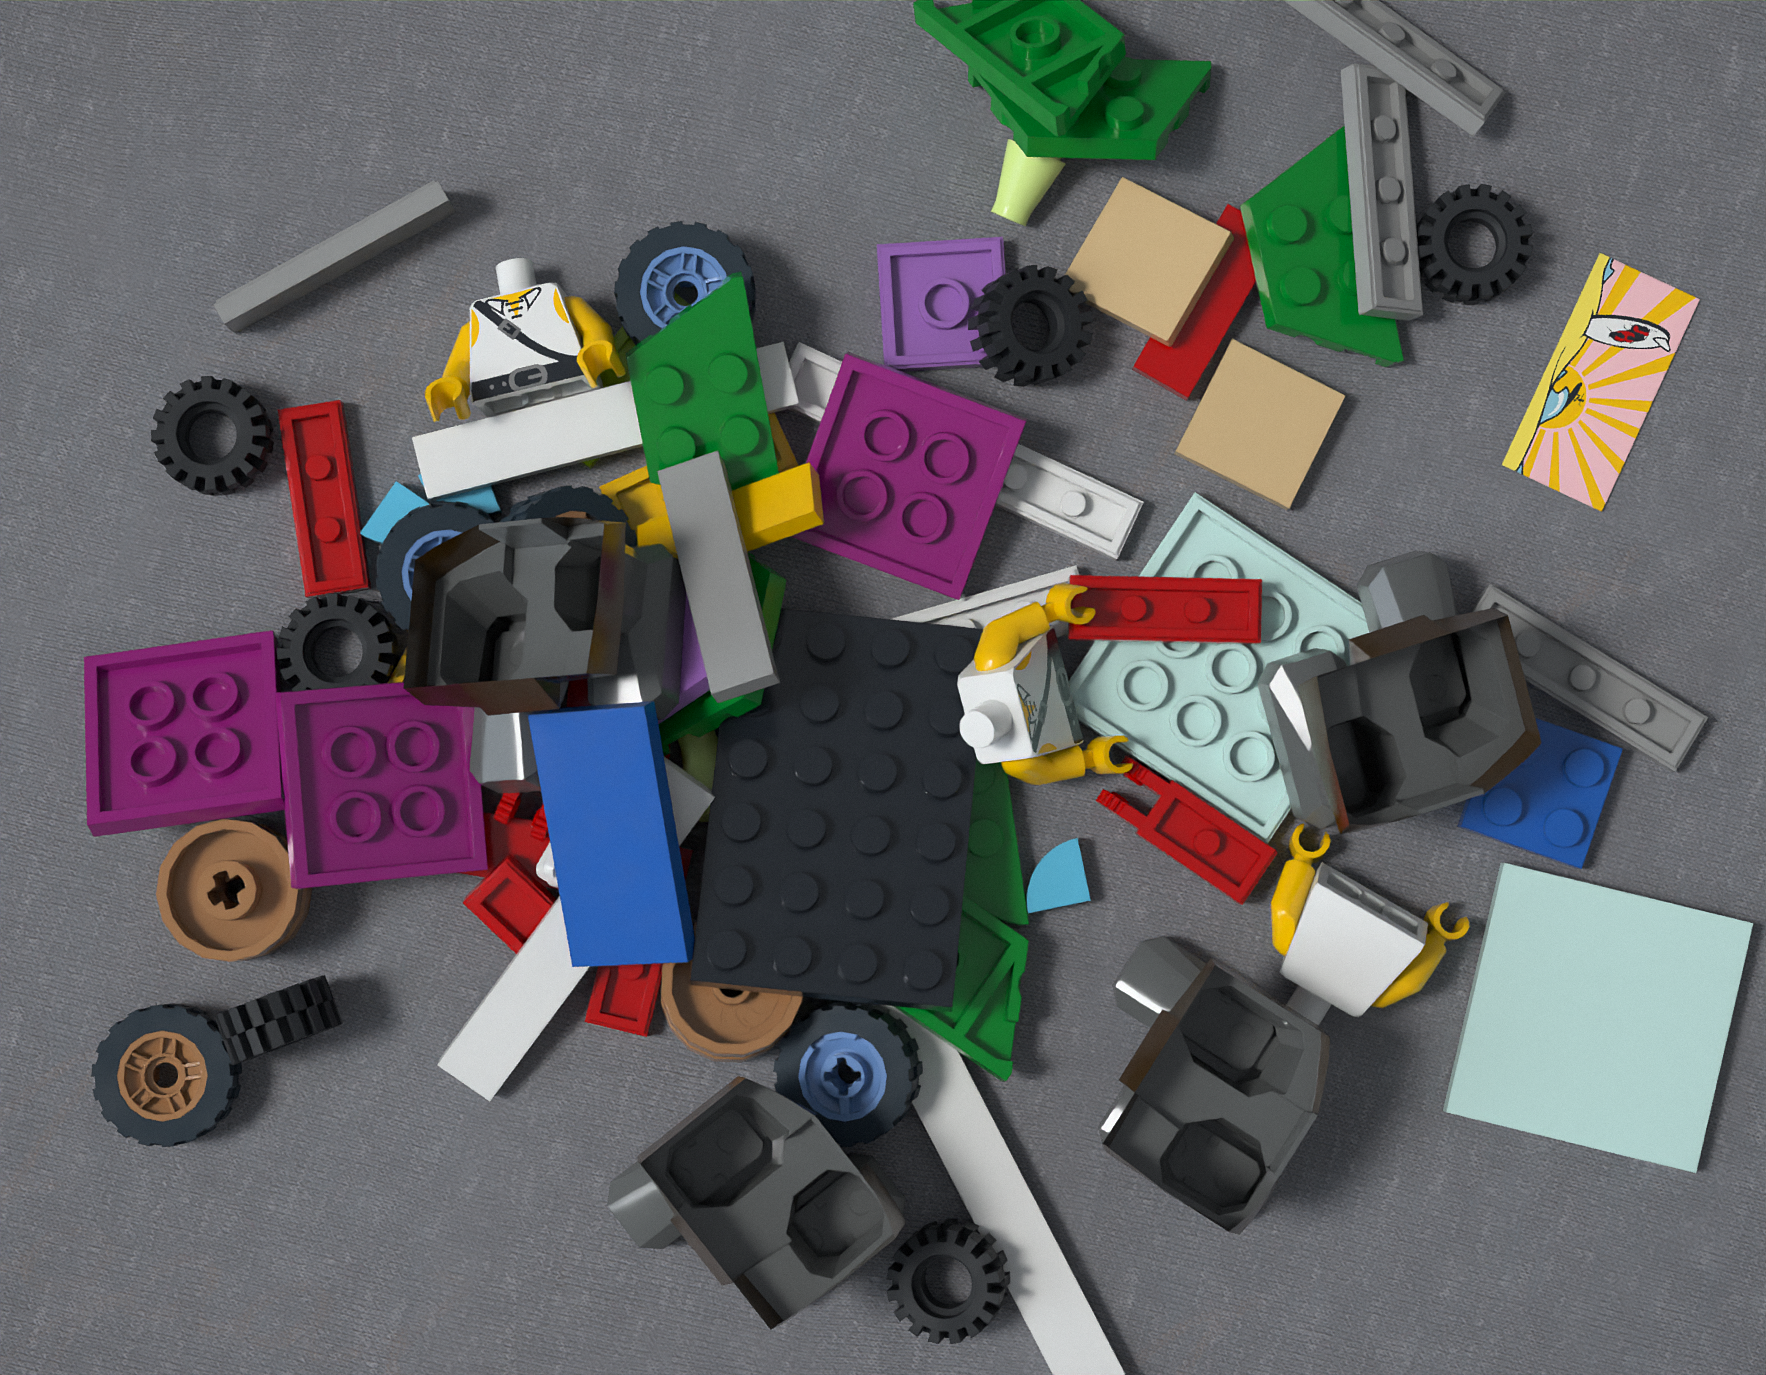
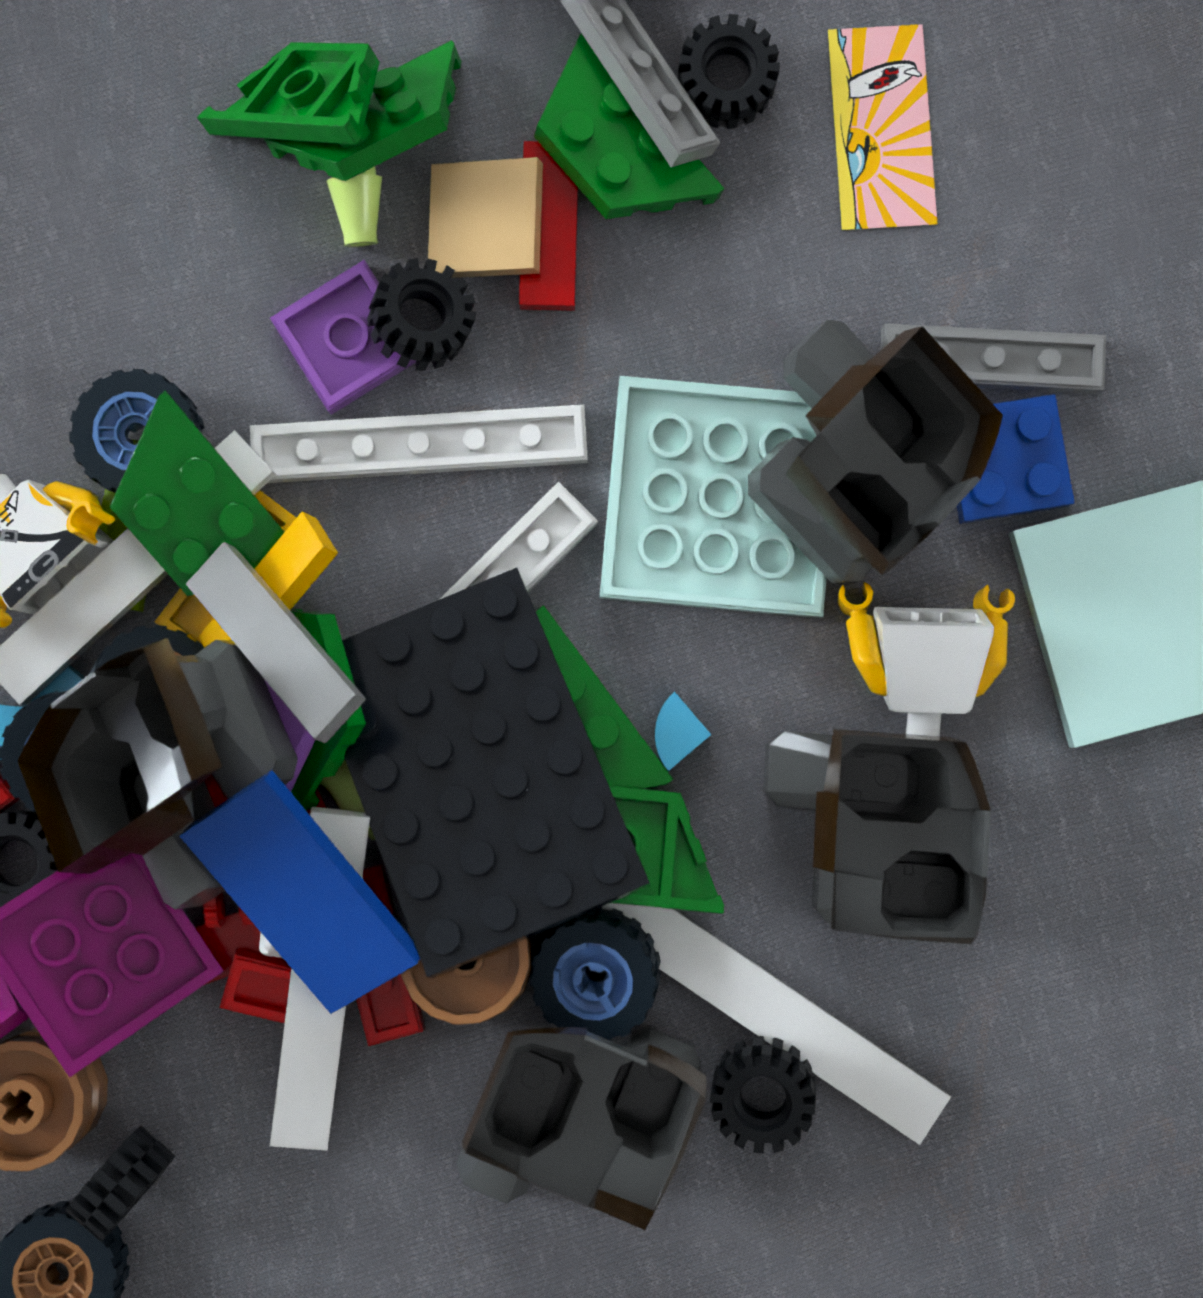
camera: 30 degrees left, 0 degrees up
(908, 474) = (388, 481): magenta plate -> none
(1022, 700) = (570, 605): torso -> none
(1169, 609) = (645, 477): red tile -> none
(1194, 834) = (762, 639): red hinge -> none
(1259, 424) = (641, 297): tan tile -> none

